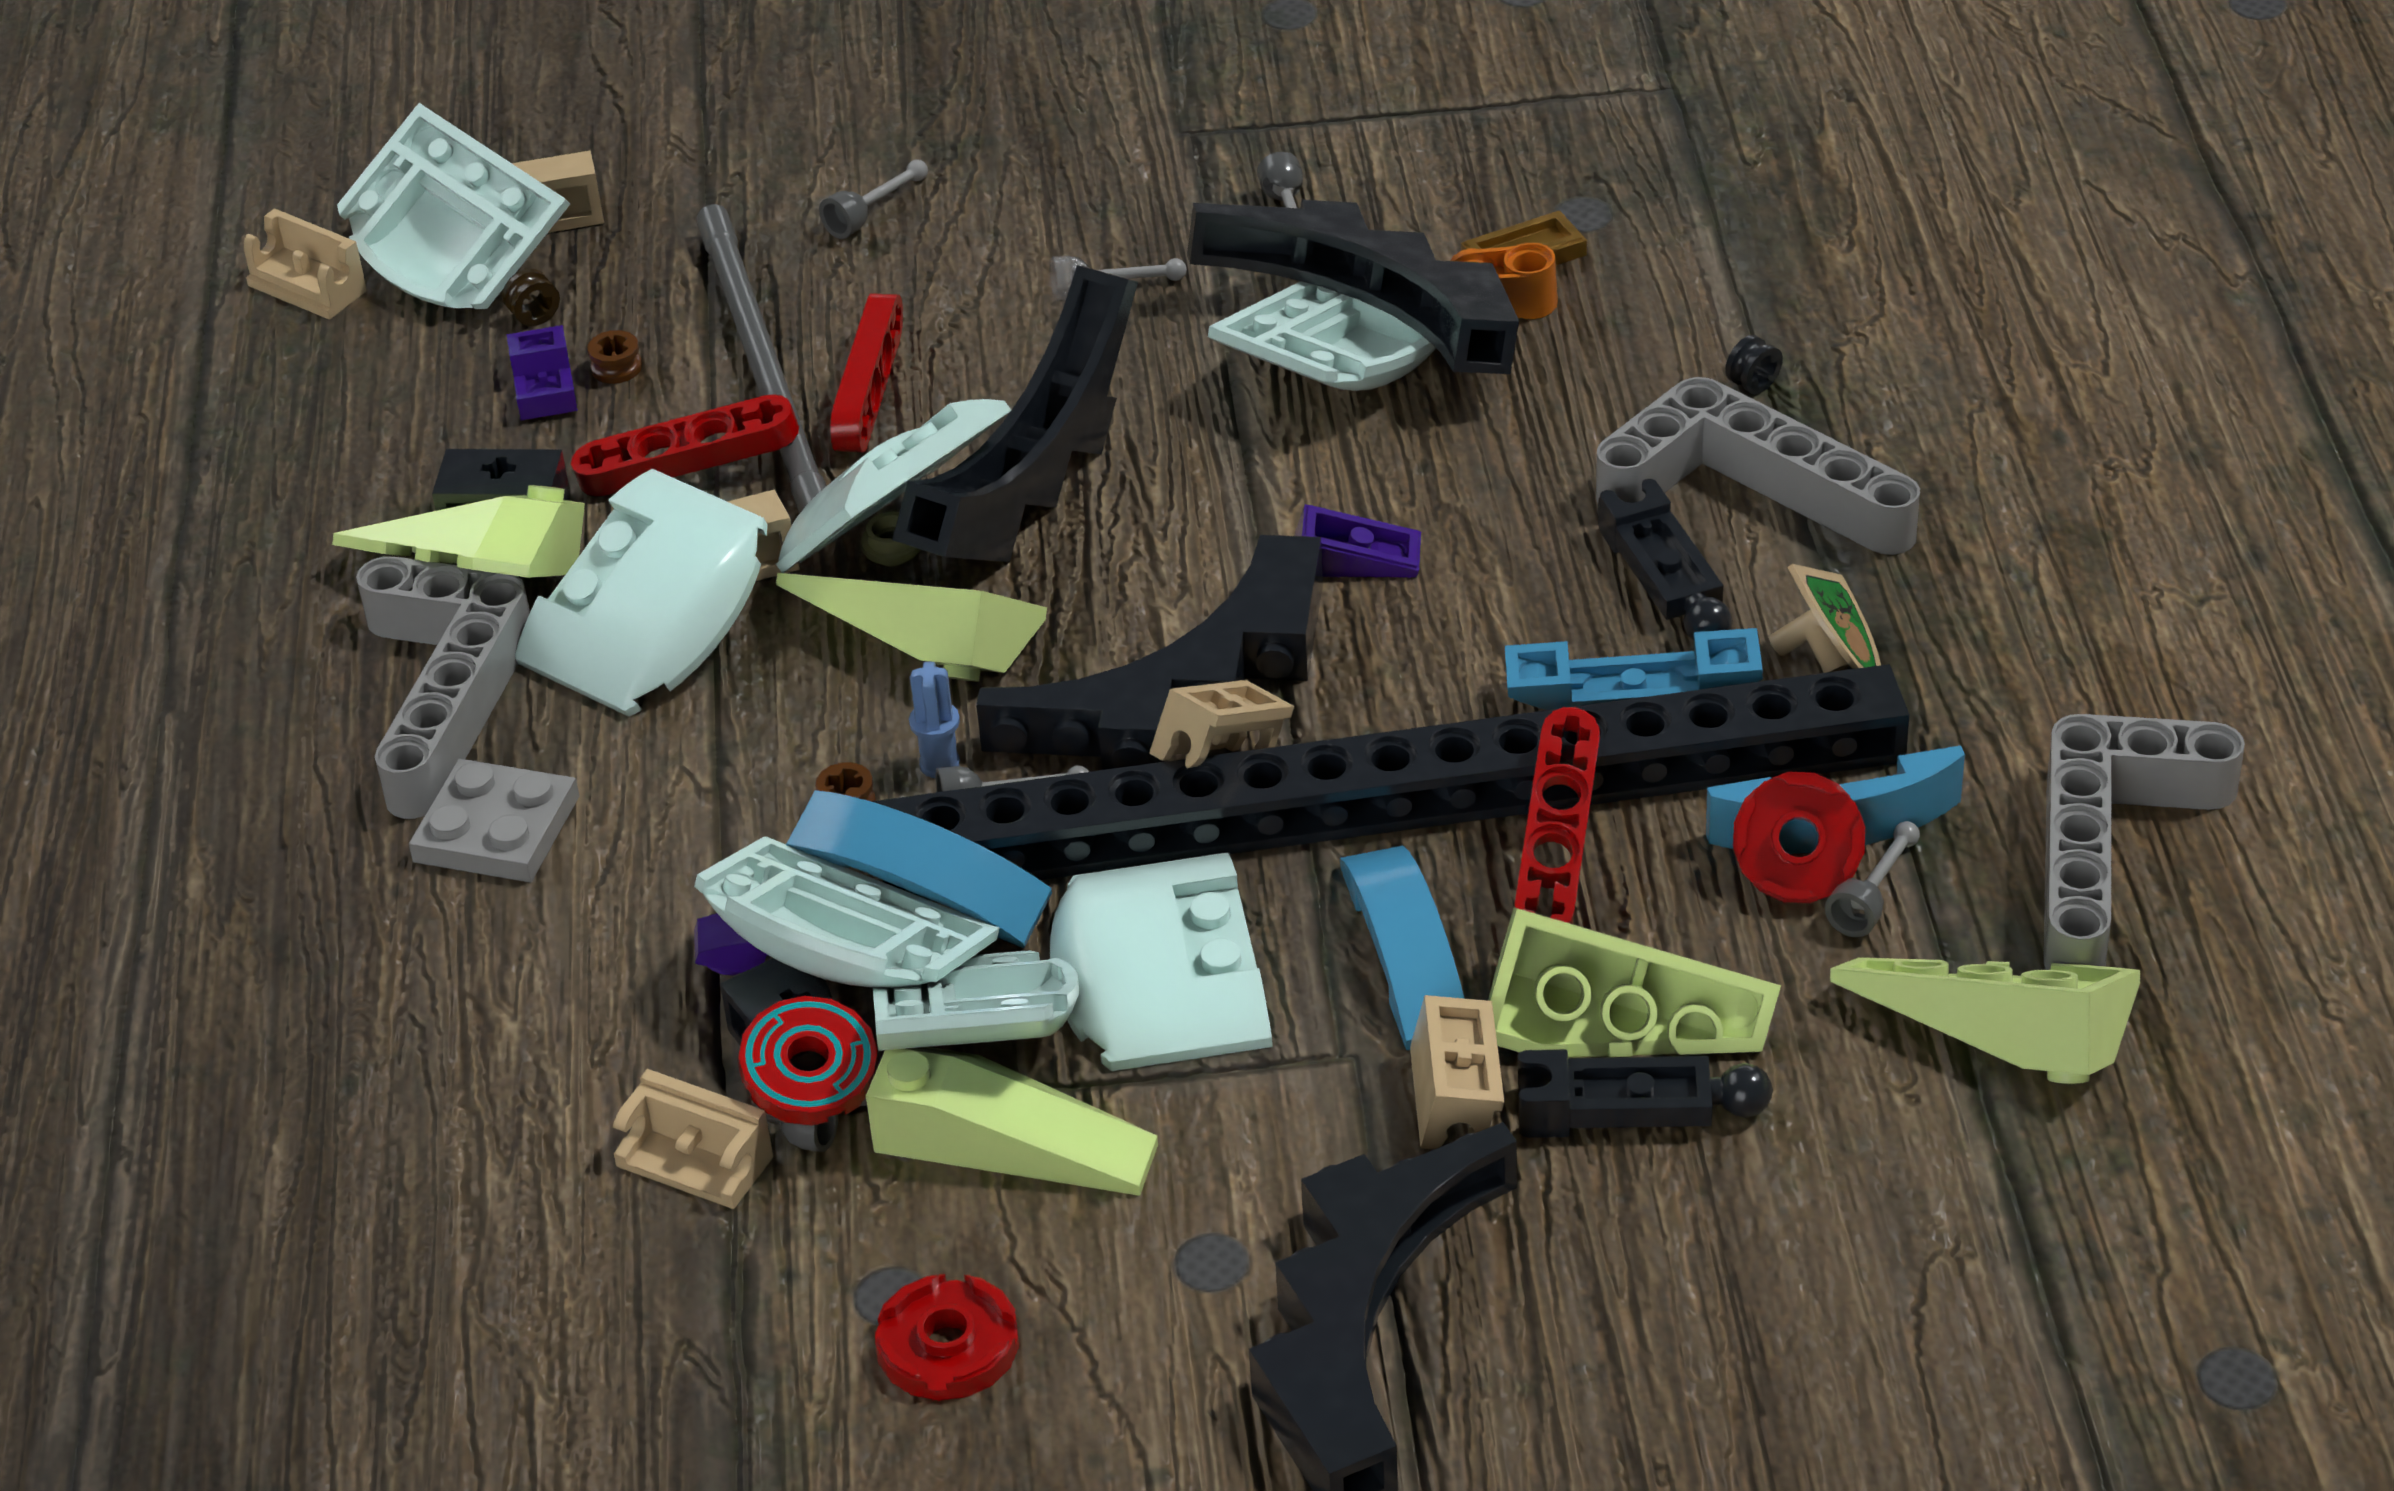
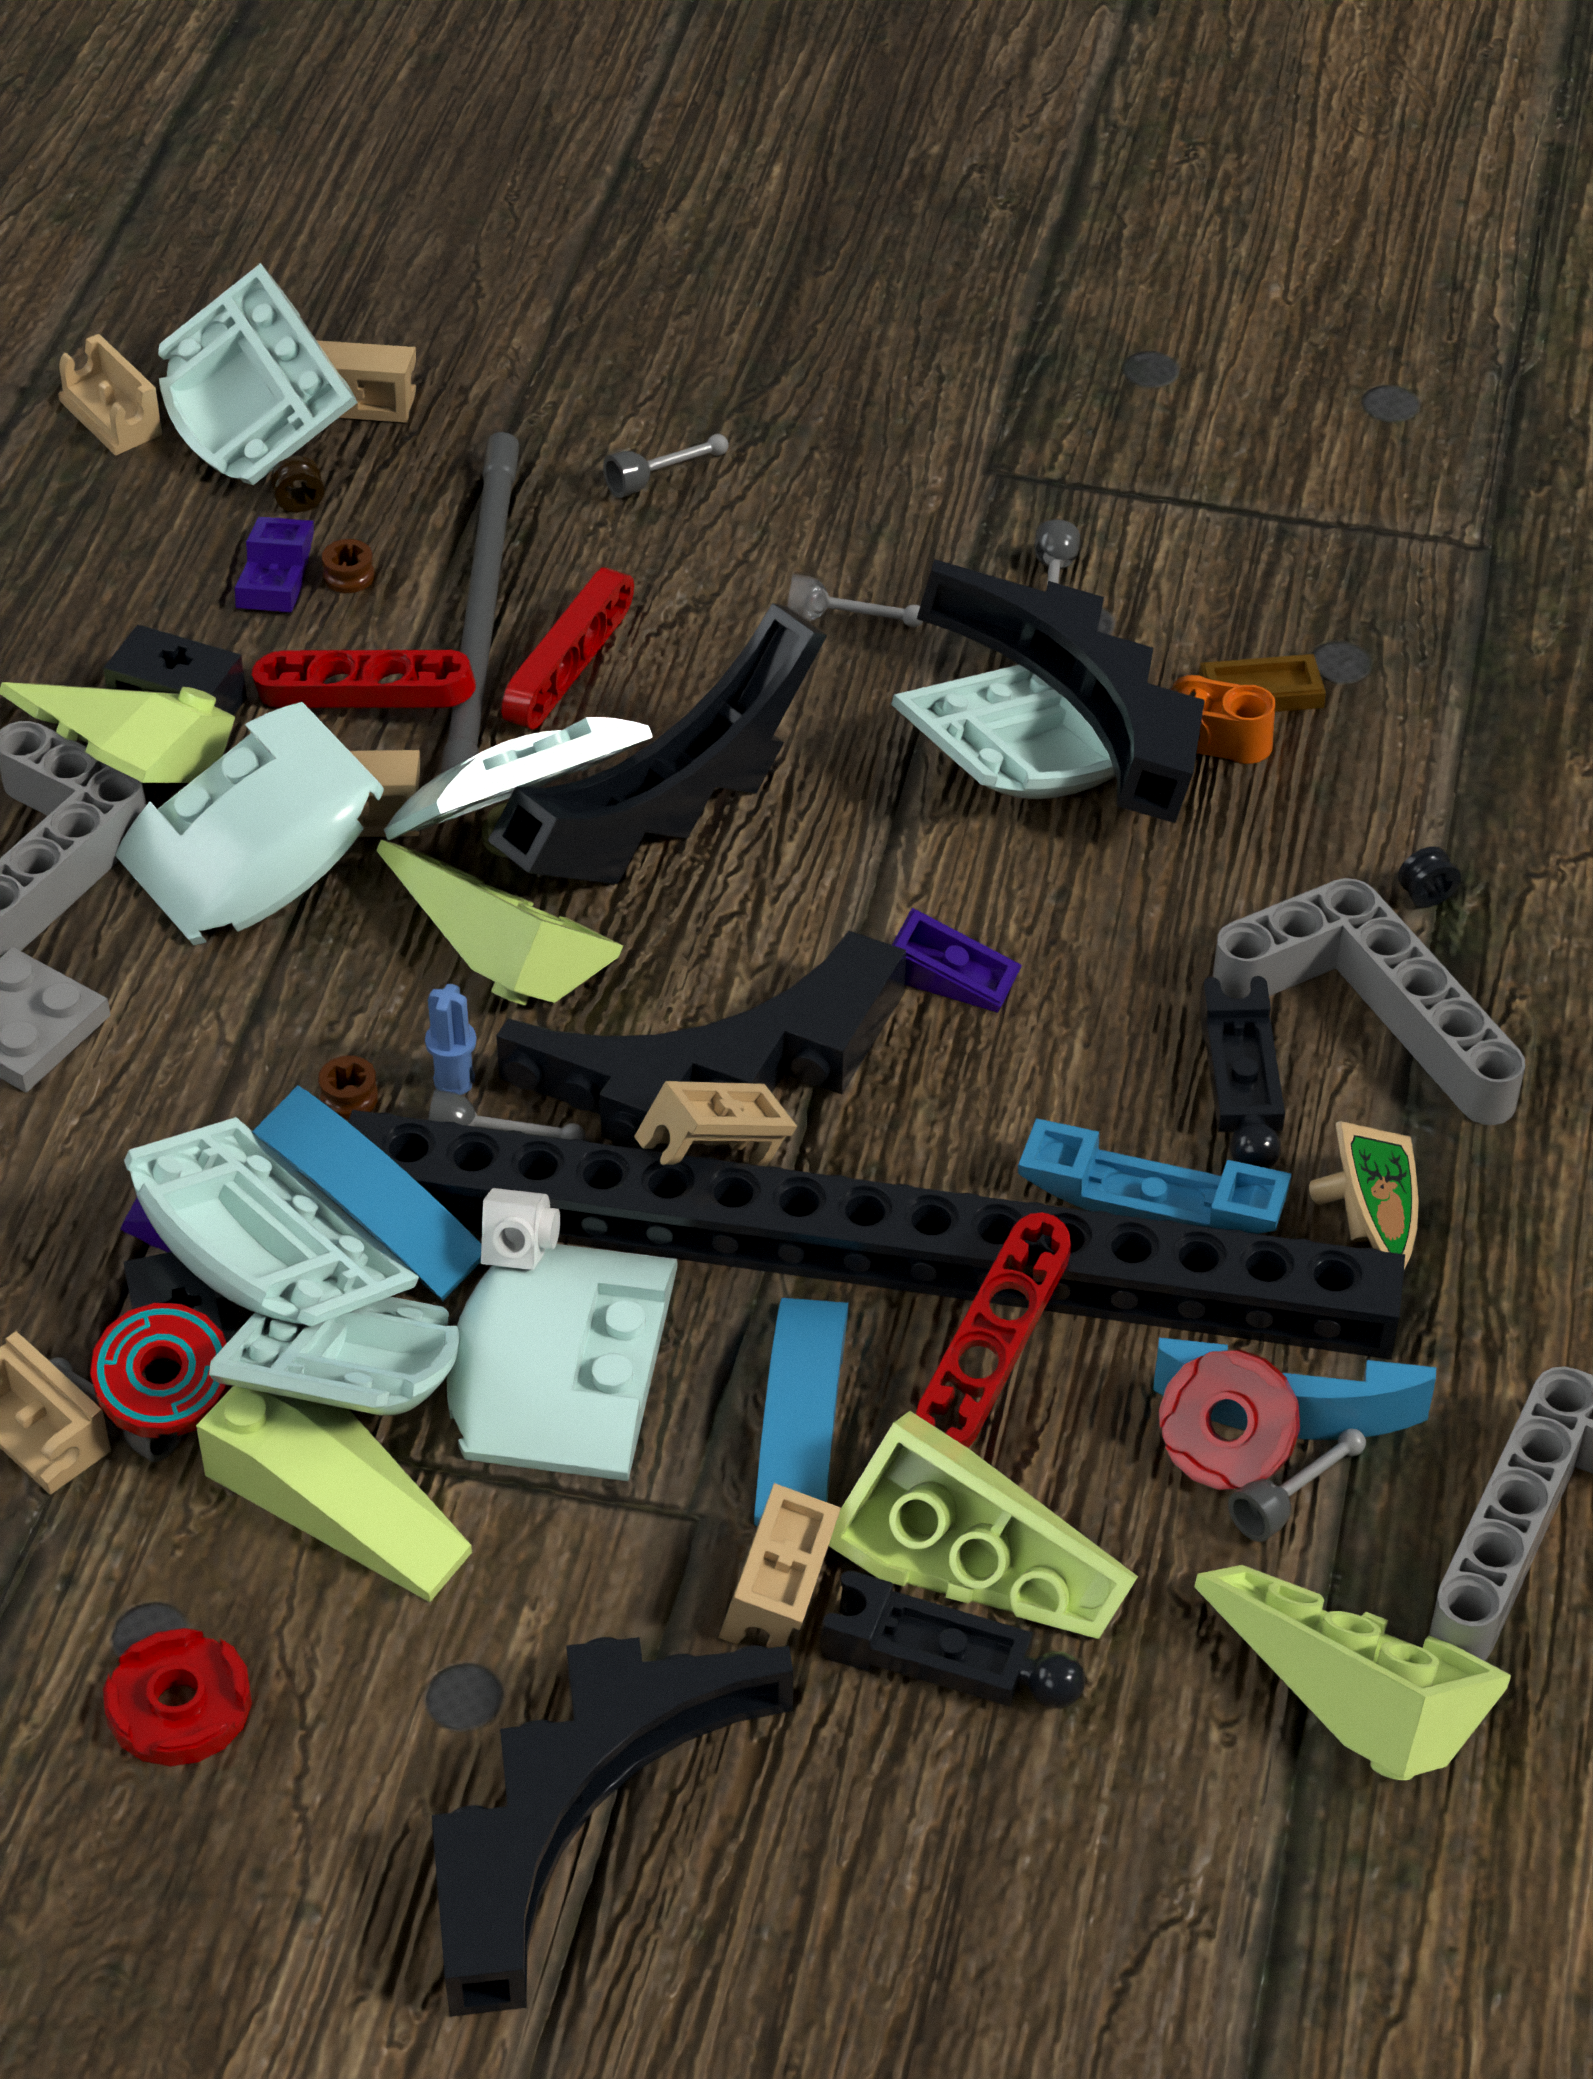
camera: 15 degrees right, 5 degrees up
(1079, 857) = (517, 1228): none -> white plate

